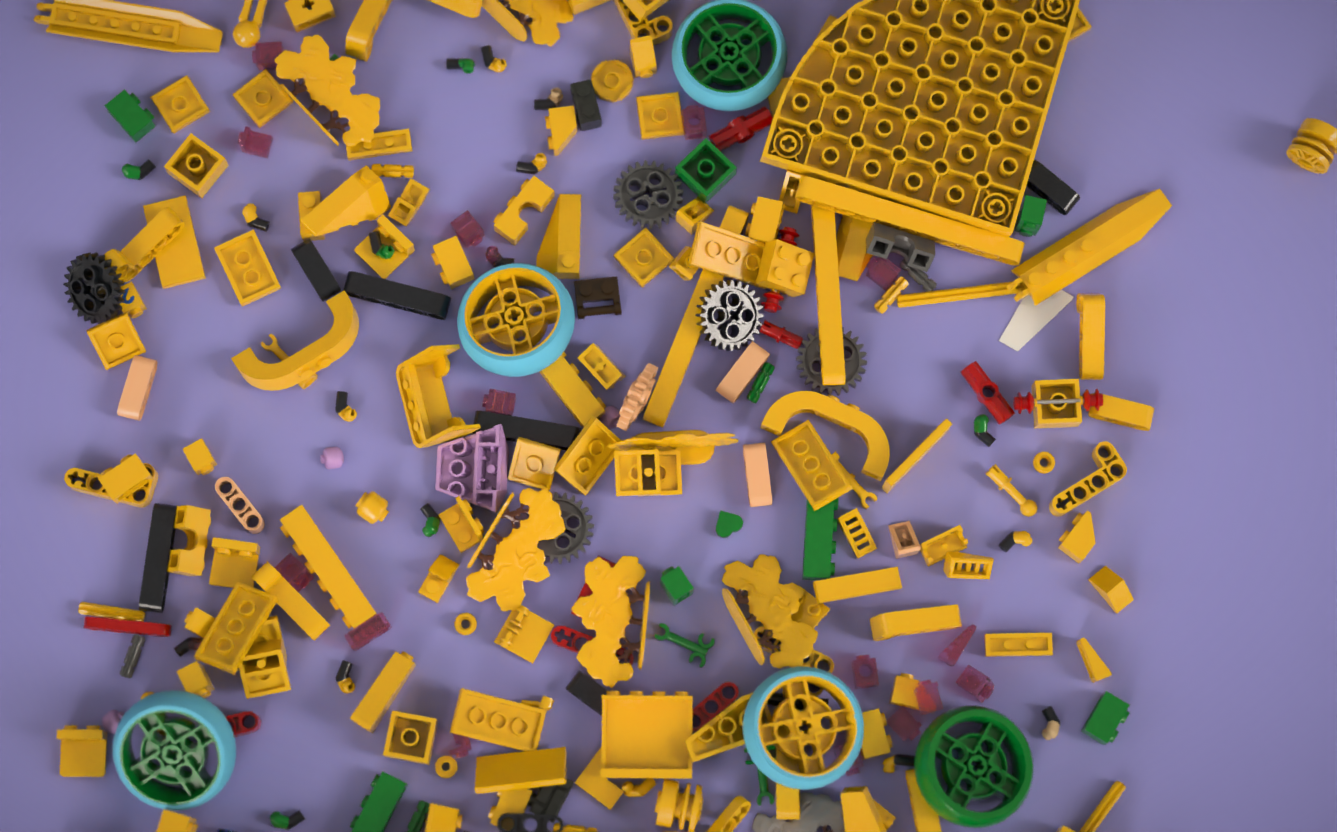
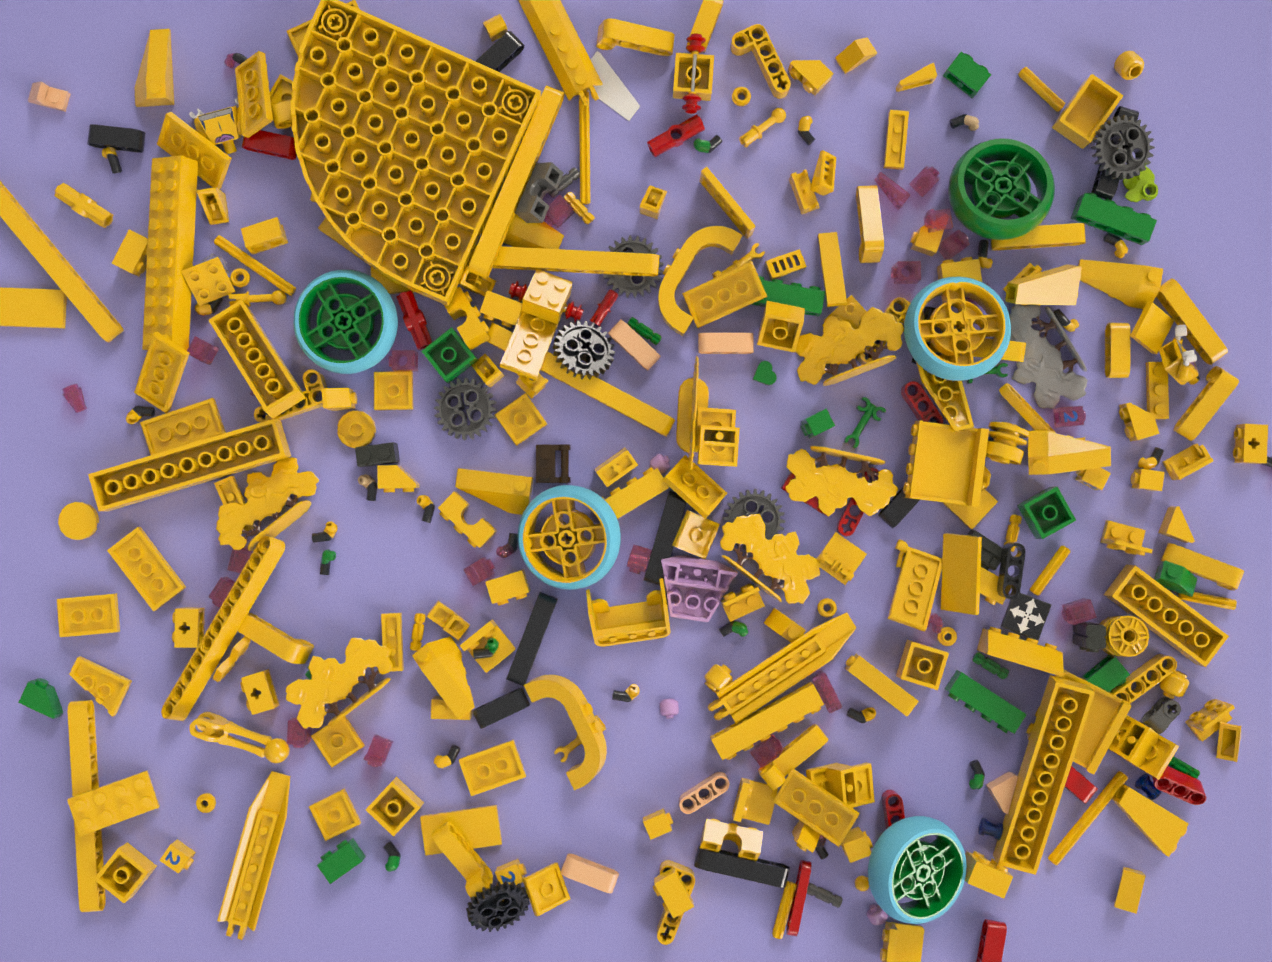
camera: 75 degrees left, 10 degrees up
(391, 580) = (783, 669): none -> yellow hinge
(637, 396) = (650, 438): light nougat gear -> none
(736, 192) = (472, 330): none -> yellow arch
(782, 531) = (781, 326): none -> yellow brick
(904, 539) = (796, 224): light nougat slope -> none
(909, 375) = (652, 202): none -> yellow slope
(1030, 216) = (524, 71): green brick -> none
(1082, 180) = (495, 27): none -> yellow brick

